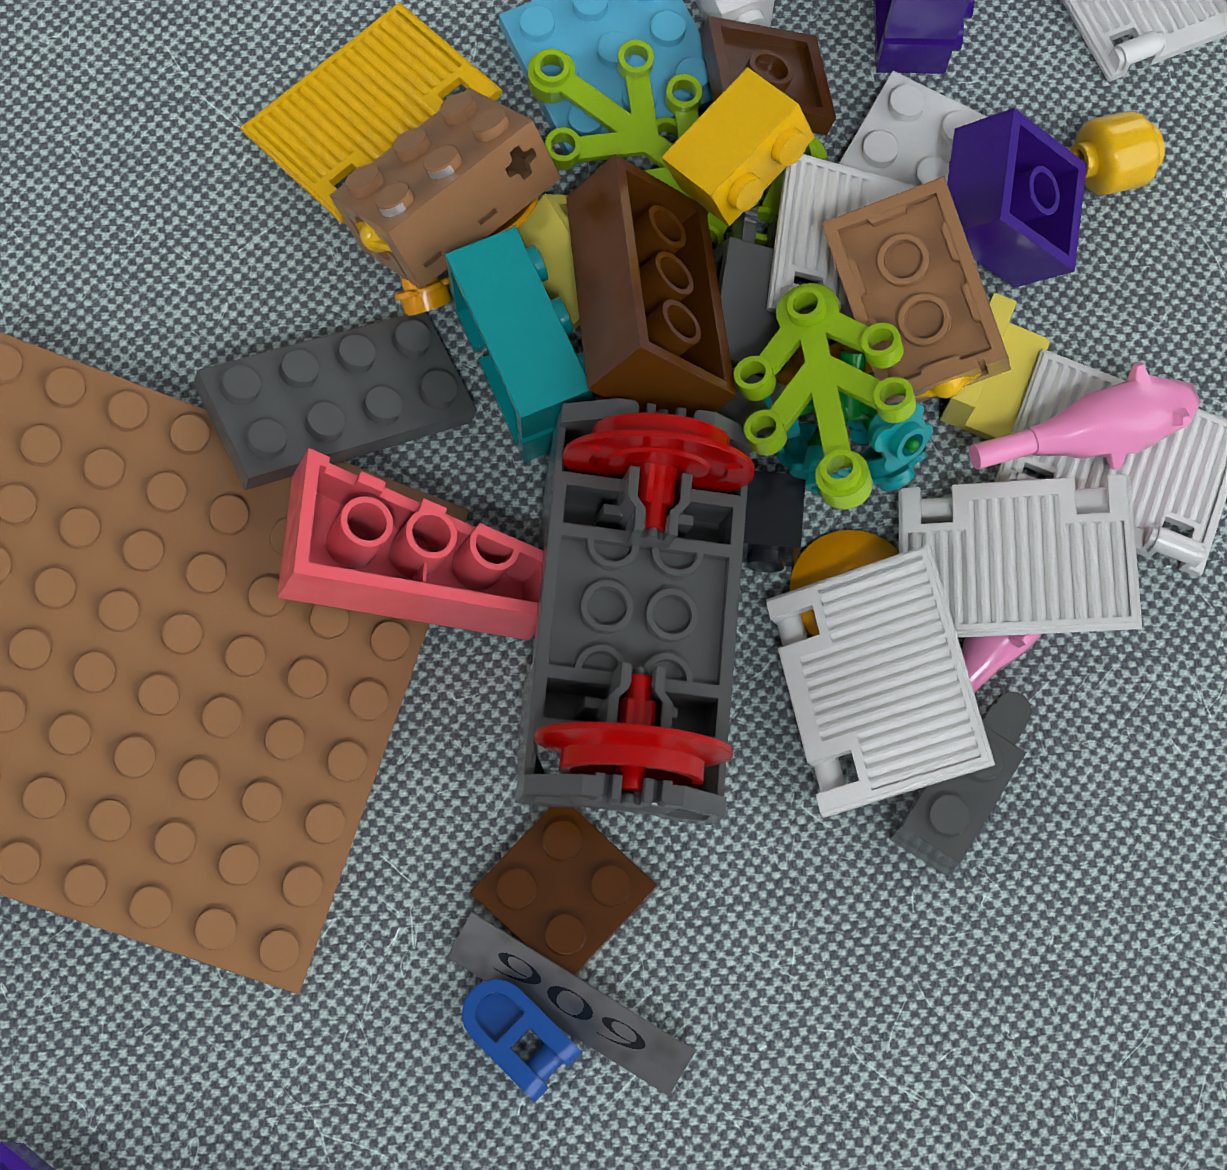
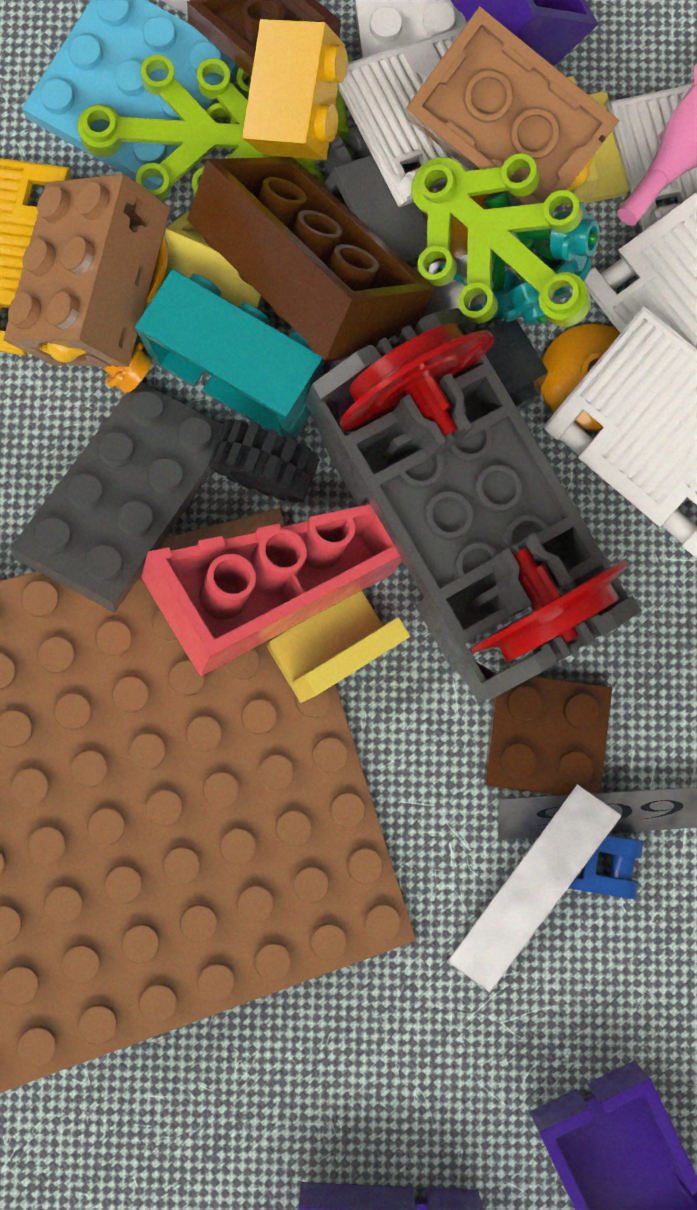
camera: 30 degrees left, 10 degrees up
(424, 662) = (333, 645): none -> light yellow panel
(442, 1019) = (534, 888): none -> sticker
(481, 453) = (264, 461): none -> black tyre

